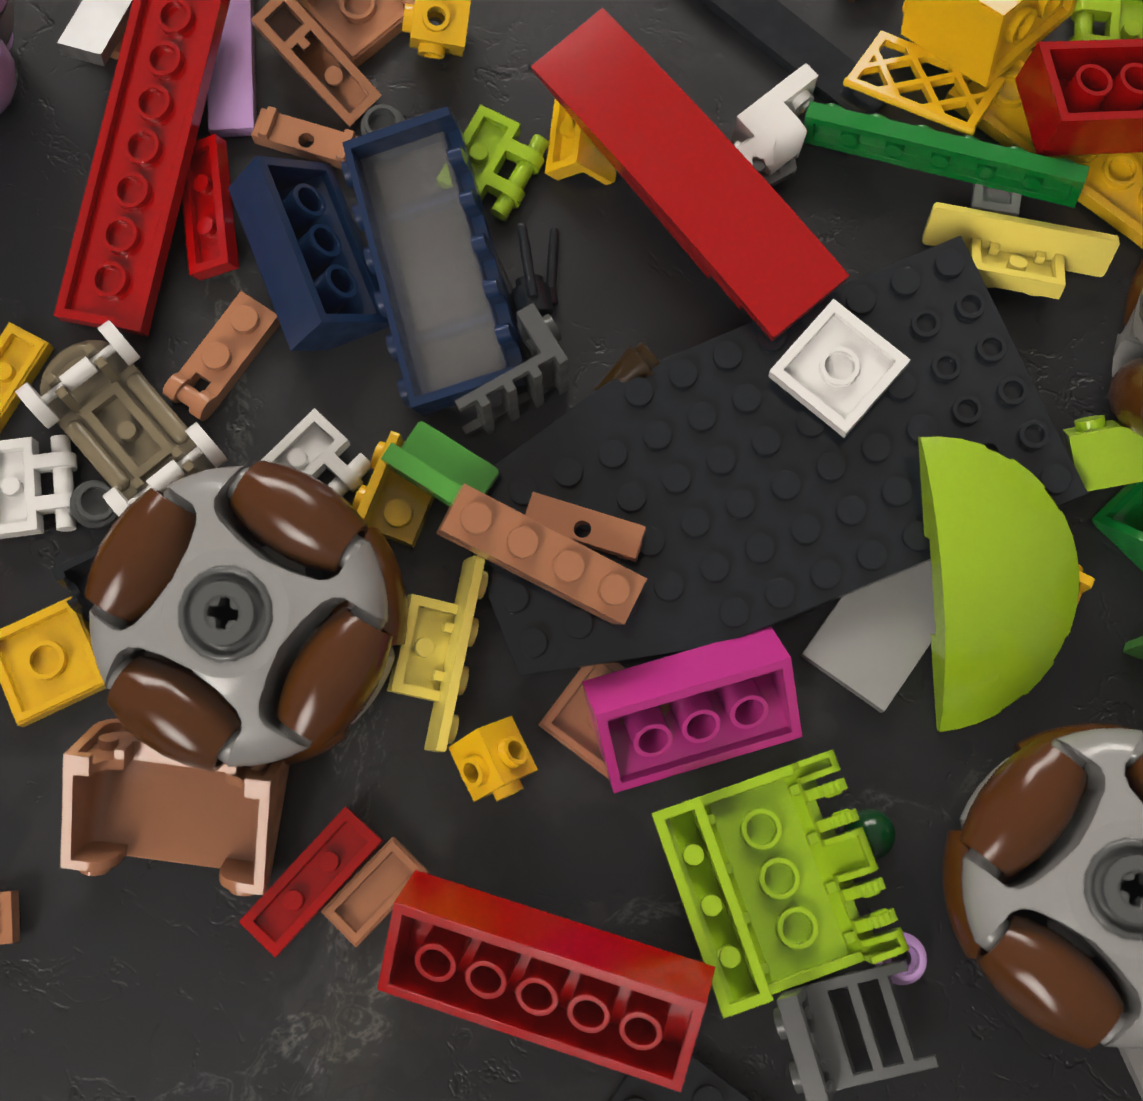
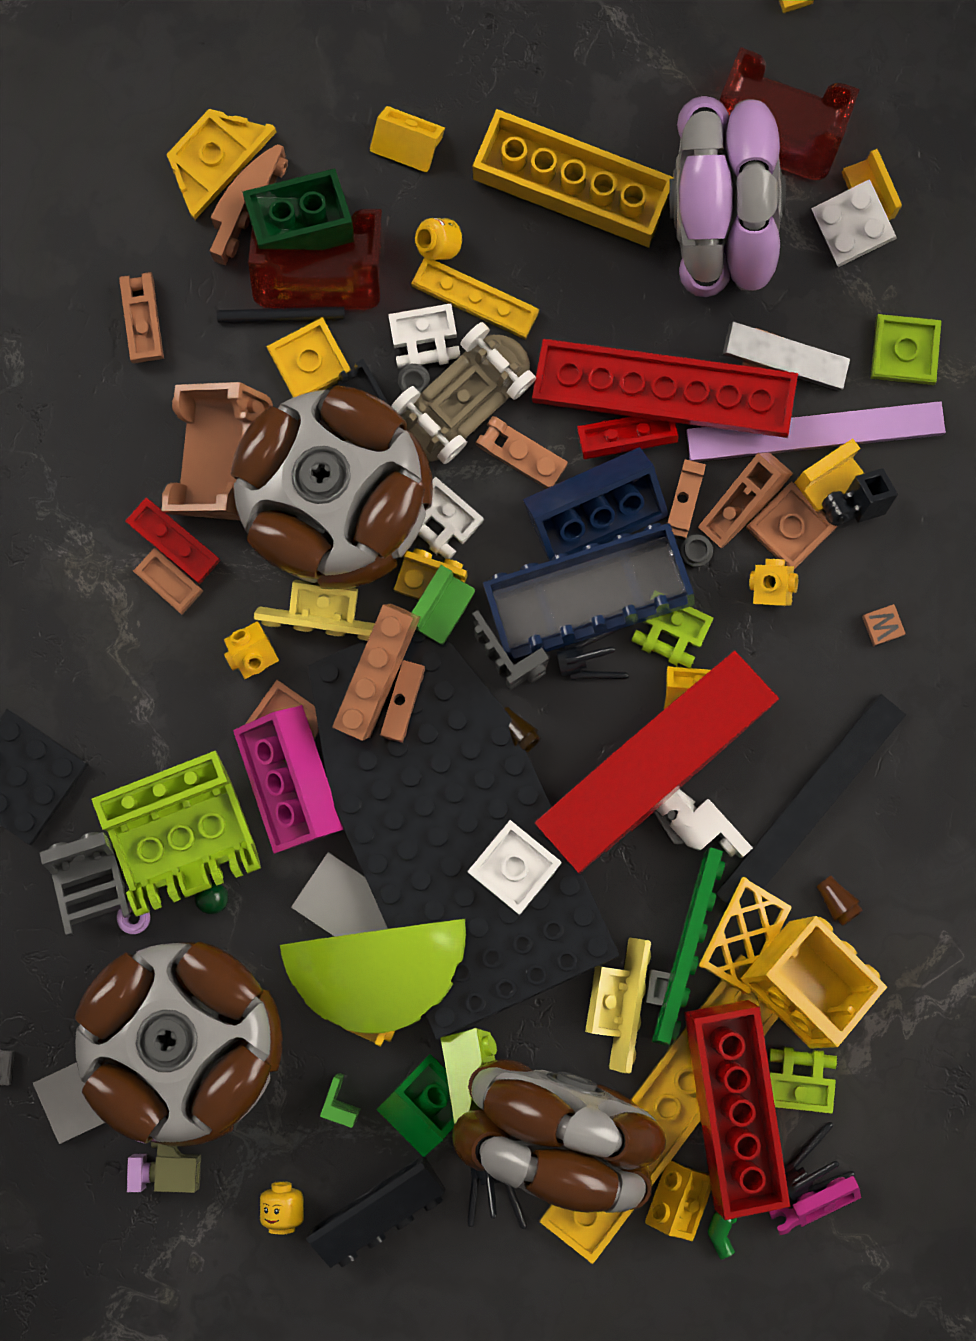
camera: 90 degrees right, 5 degrees up
(545, 979) = (113, 688): red brick -> none

